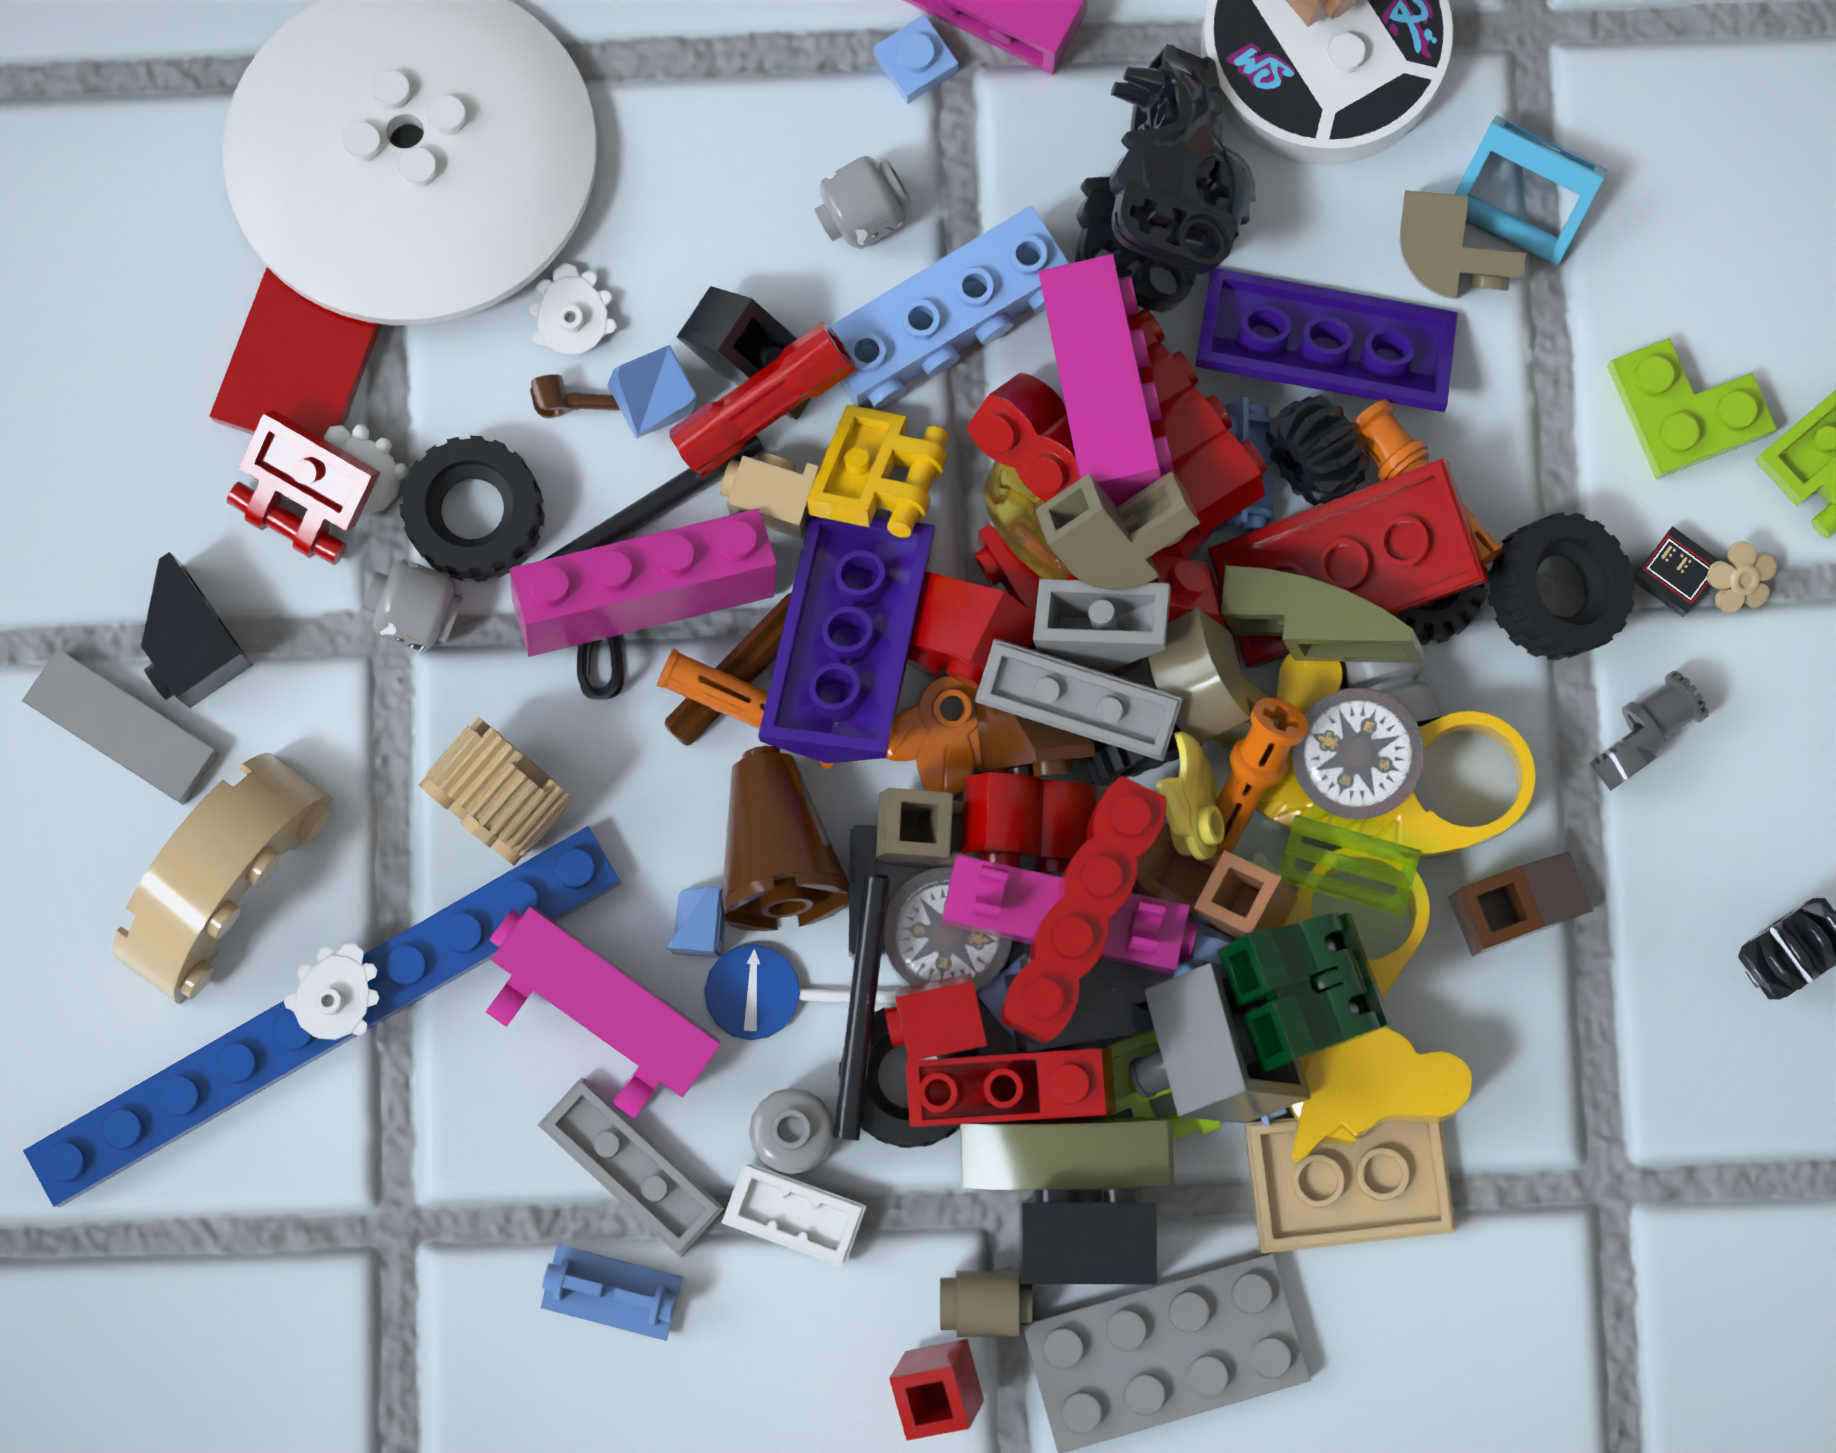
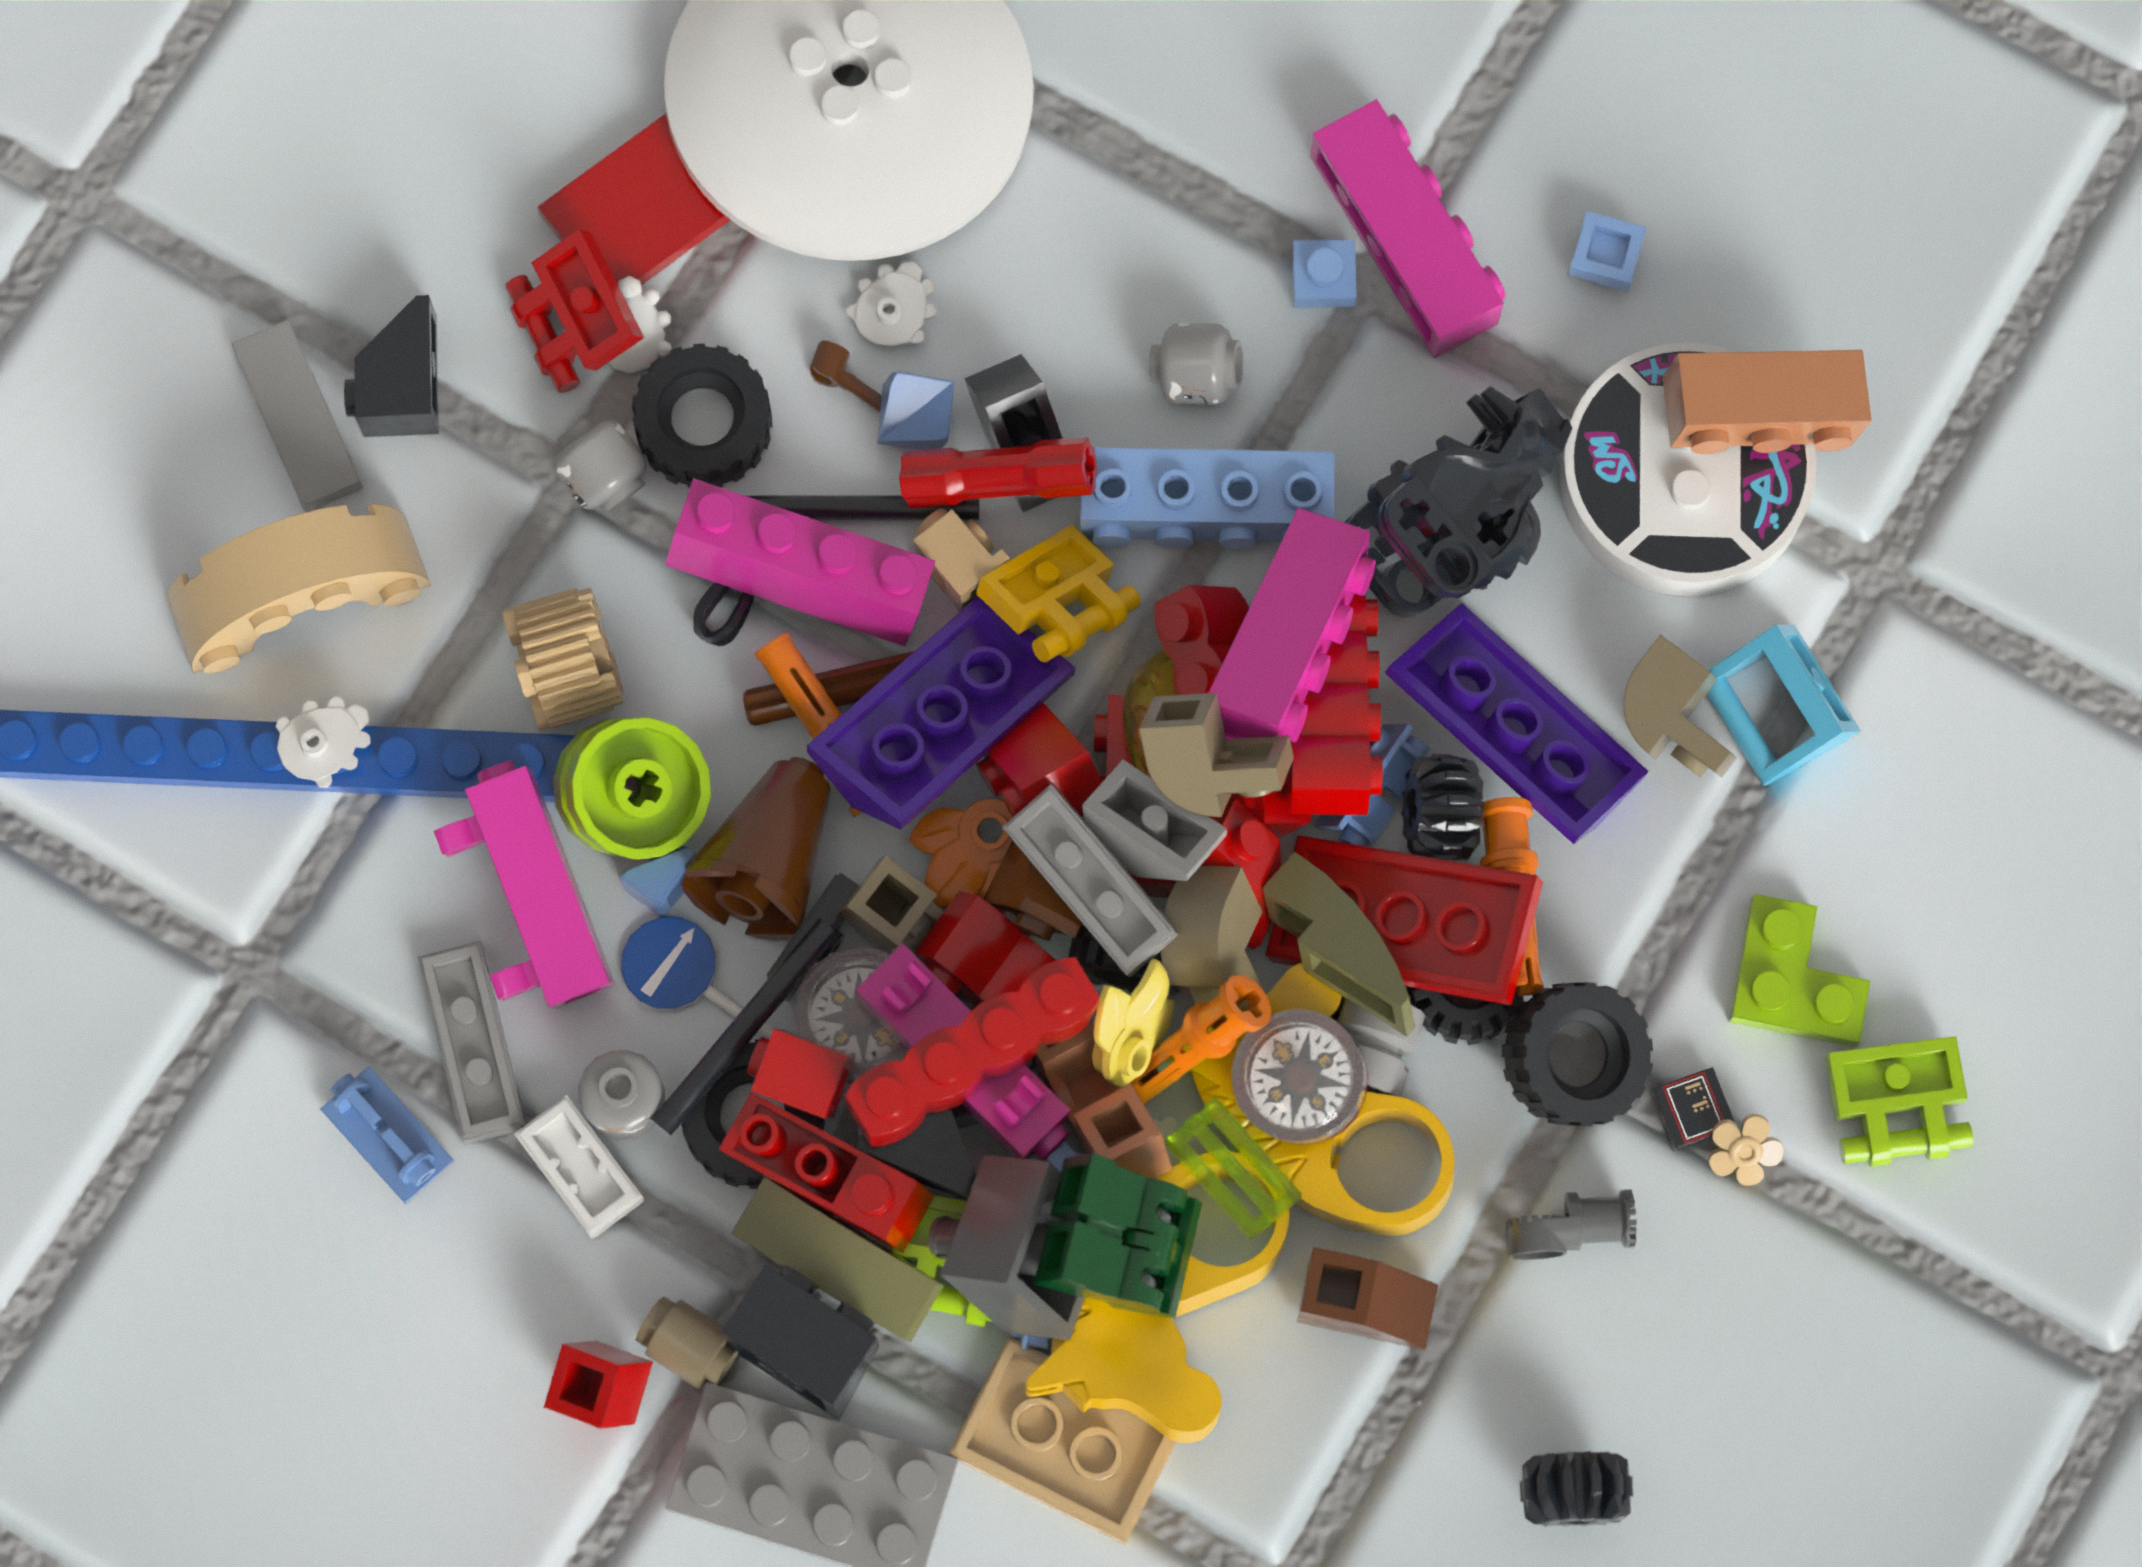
camera: 30 degrees right, 5 degrees down
(665, 856) = (669, 792): none -> lime wheel

